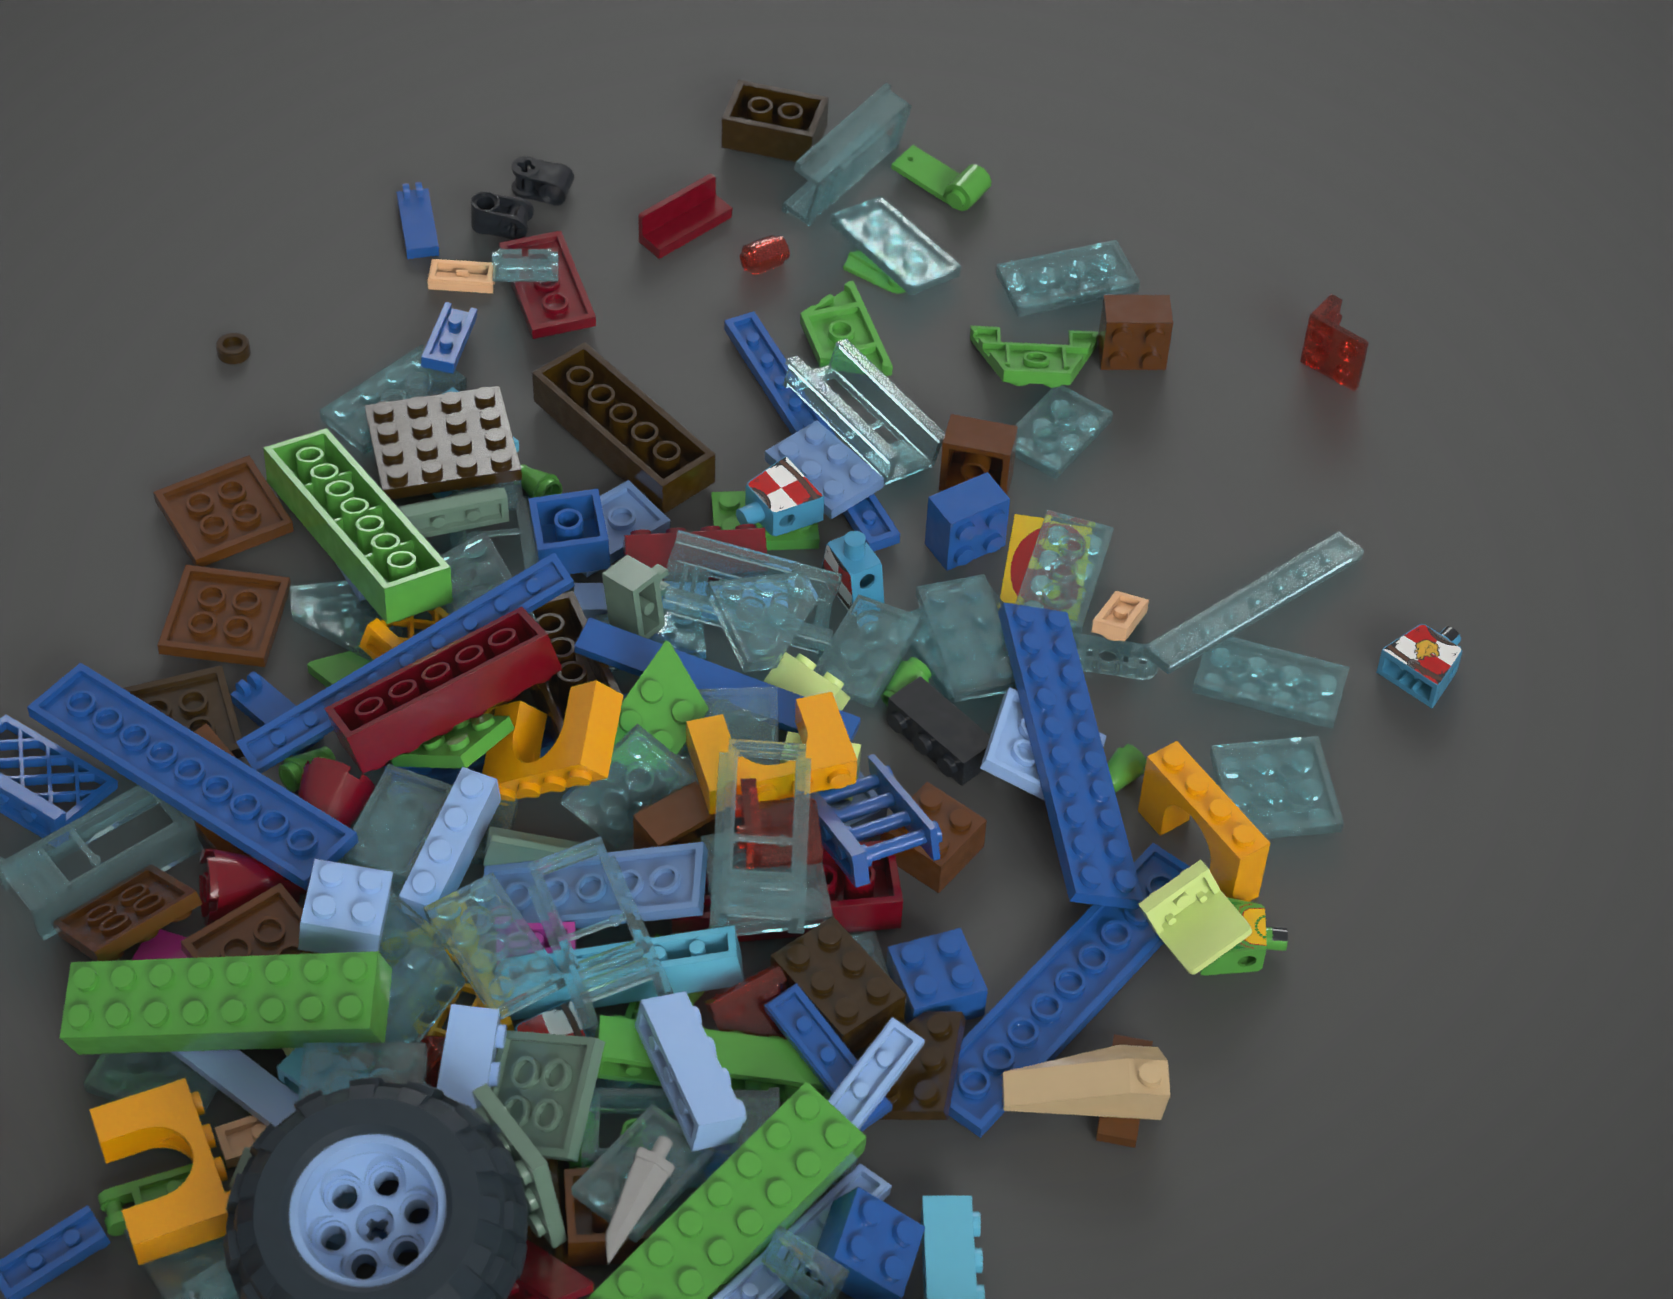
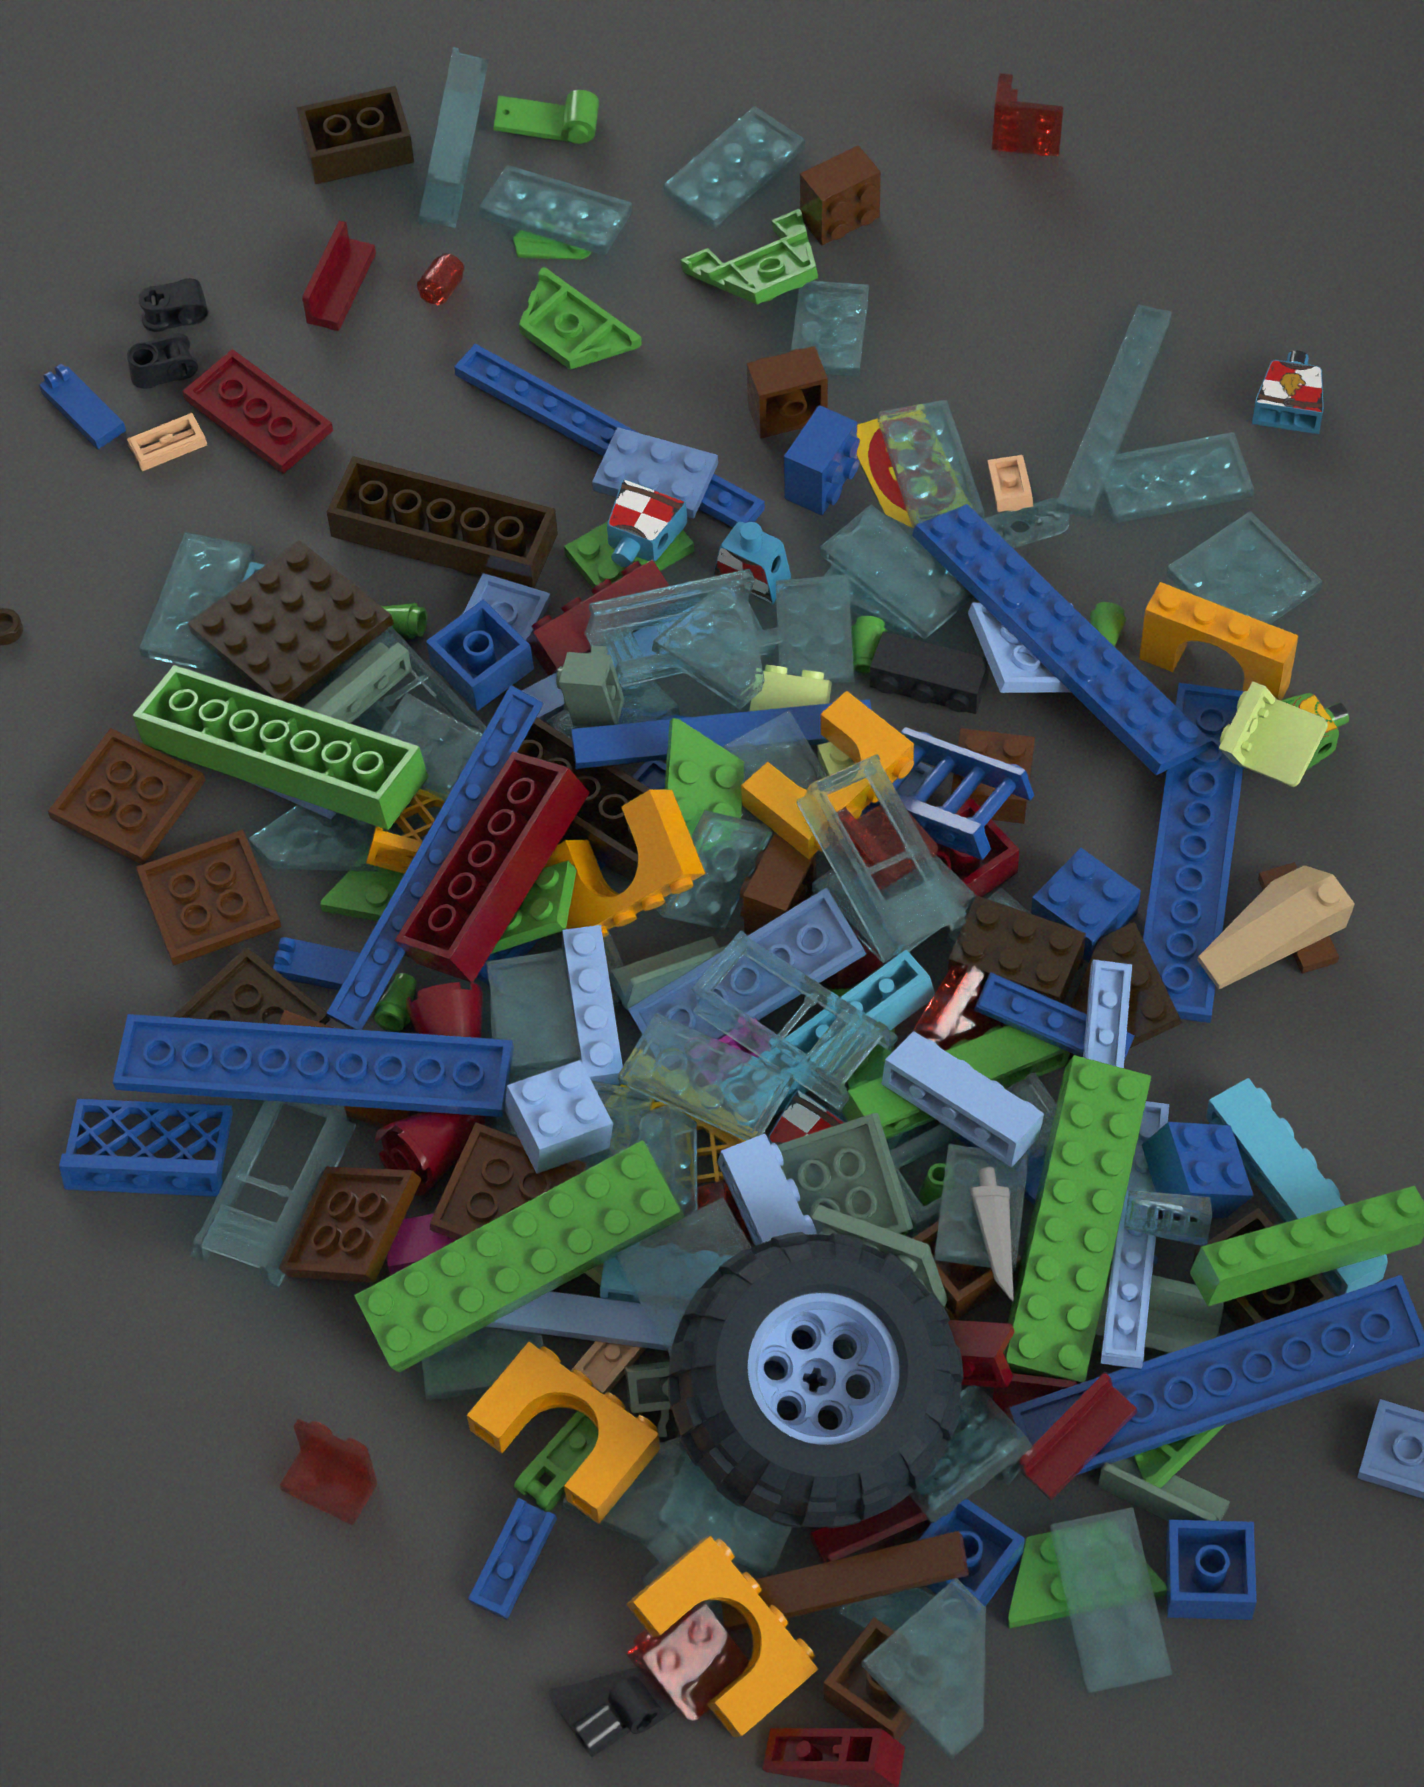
camera: 25 degrees left, 10 degrees up
(448, 339) = (211, 514): hinge -> none
(539, 265) = (233, 405): clear light blue hinge -> none
(917, 434) = (713, 396): clear light blue piece -> none

